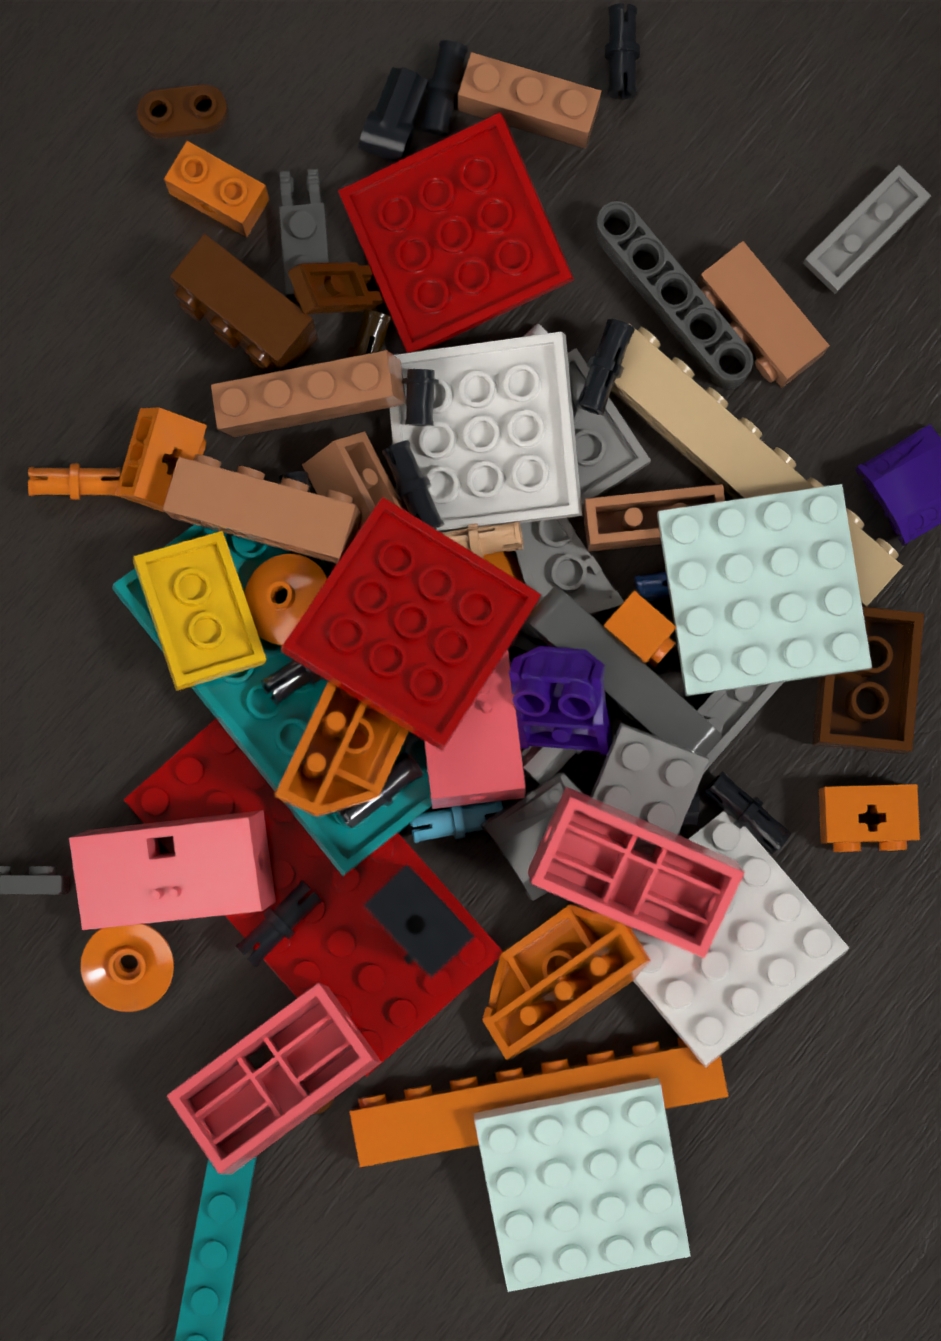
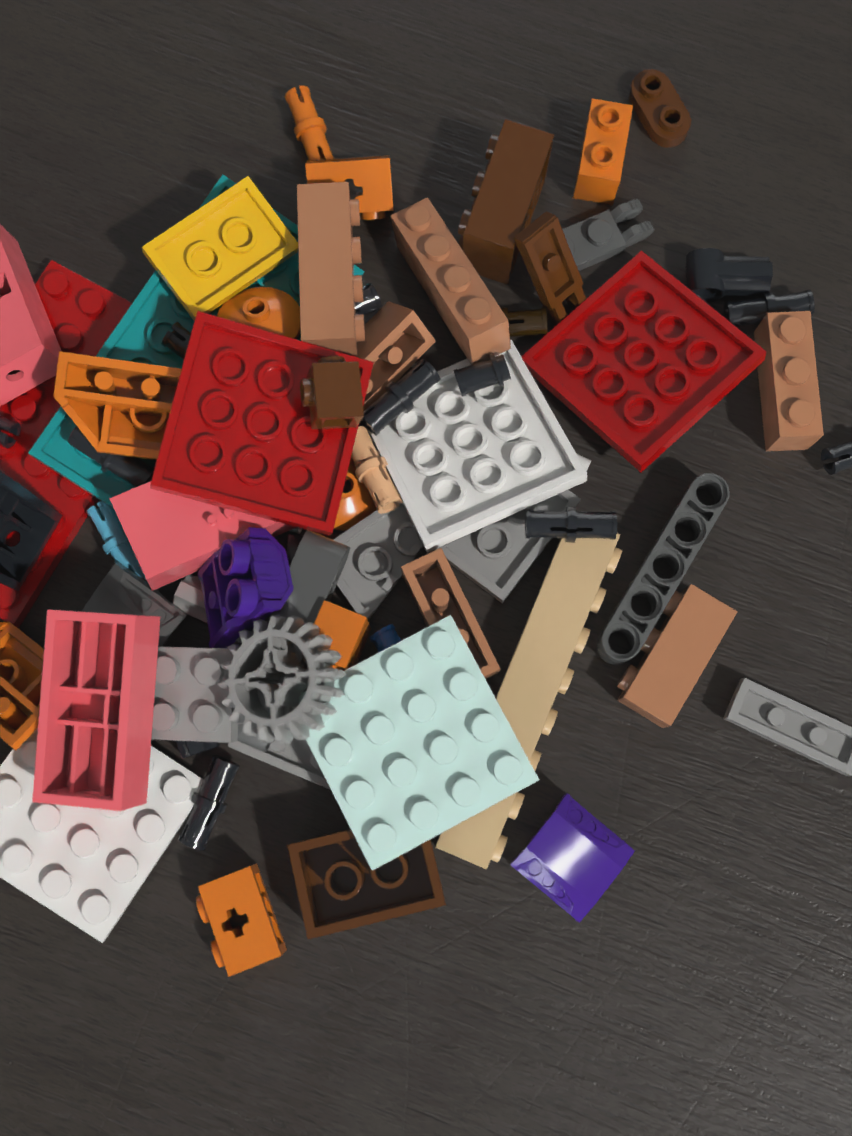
camera: 75 degrees right, 5 degrees down
(411, 543) = (333, 393): none -> reddish brown brick
(691, 694) = (274, 646): none -> light grey gear

